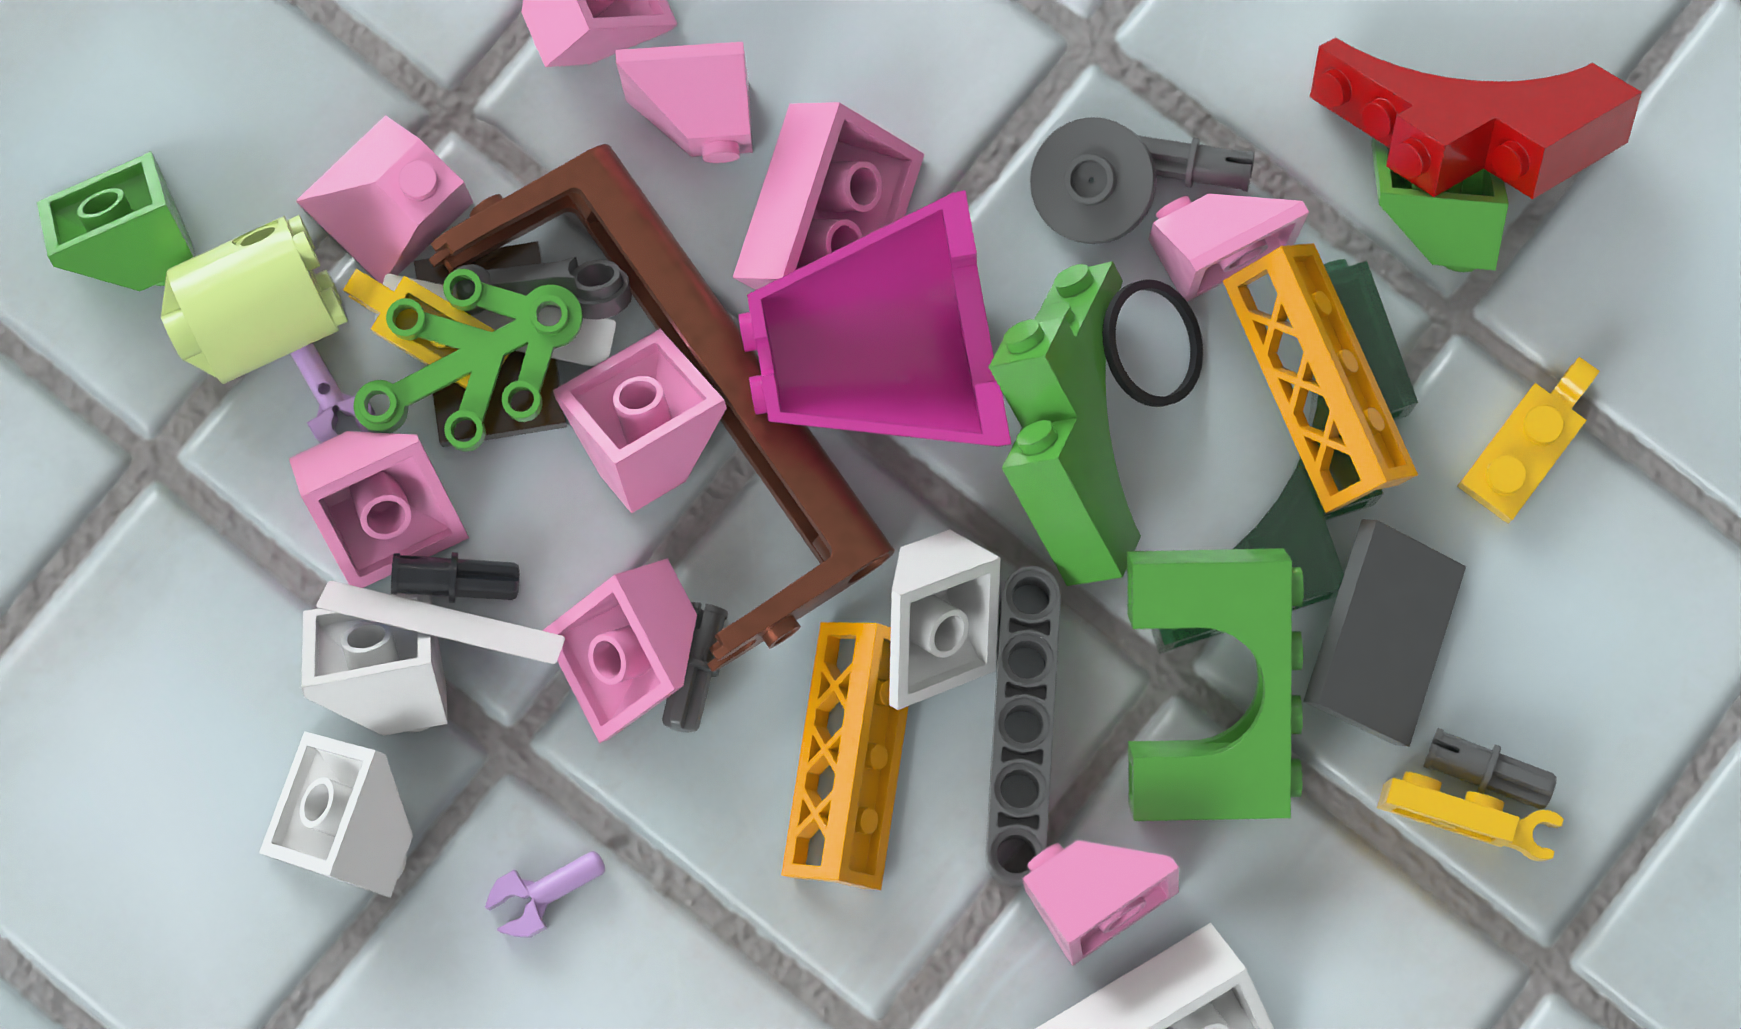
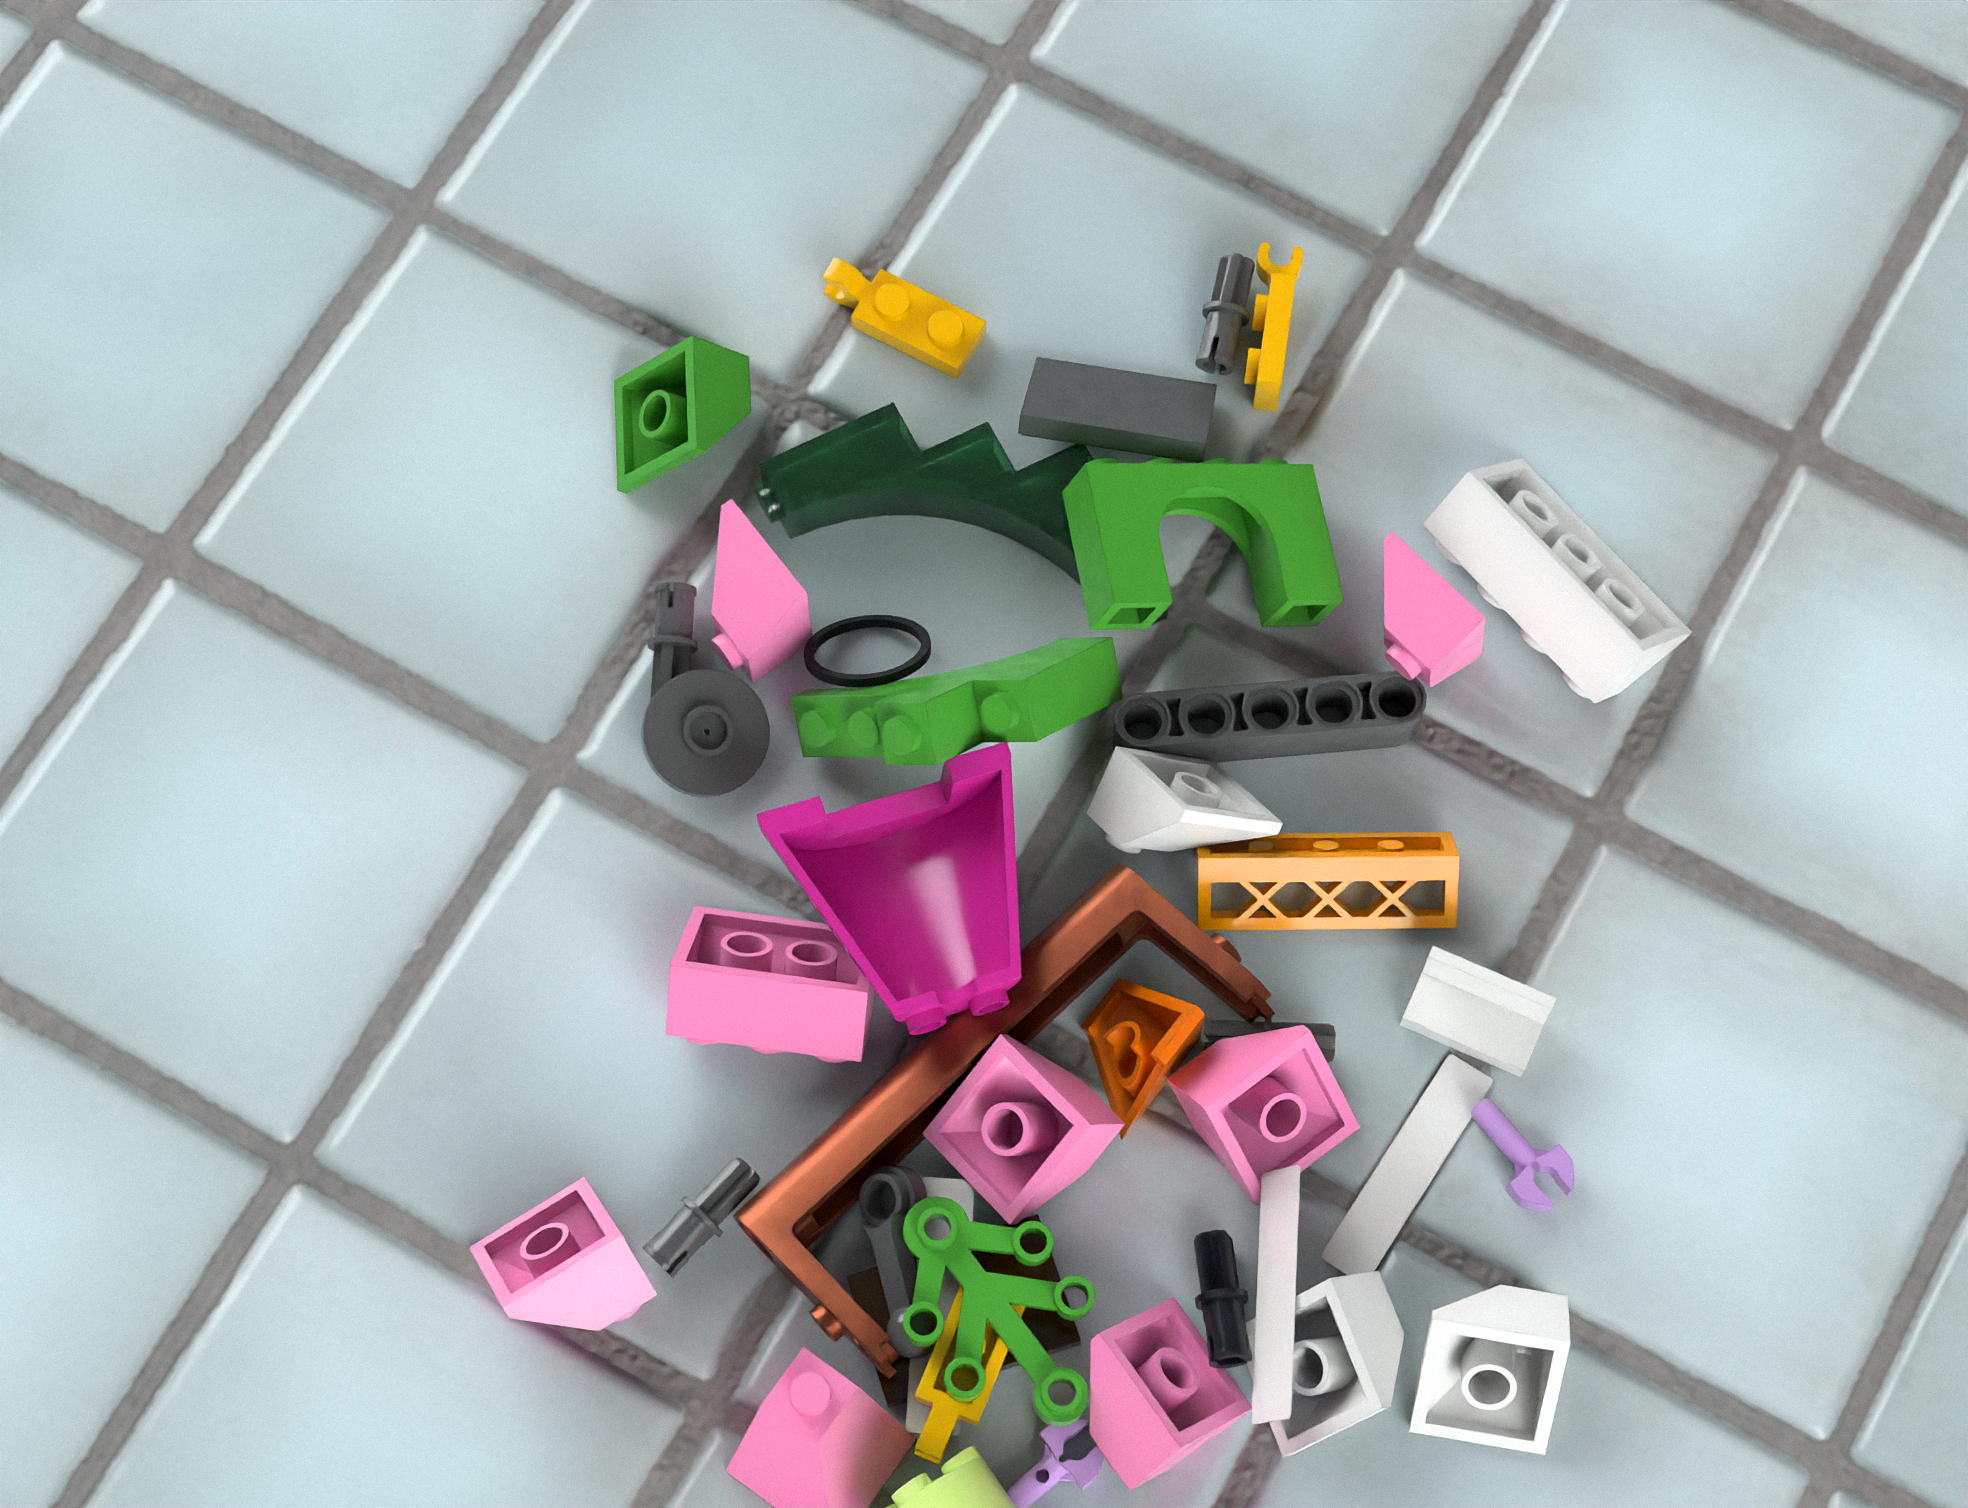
camera: 100 degrees left, 10 degrees down
(554, 782) = (1407, 1168): none -> white sticker
(616, 119) = (701, 1217): none -> dark grey axle
(686, 873) = (1477, 1011): none -> white panel
(692, 96) = (677, 1125): bright pink slope -> none
(714, 544) = (1139, 1043): none -> orange slope
(1339, 370) = (877, 463): light orange fence -> none
(1454, 127) = (615, 400): red arch -> none

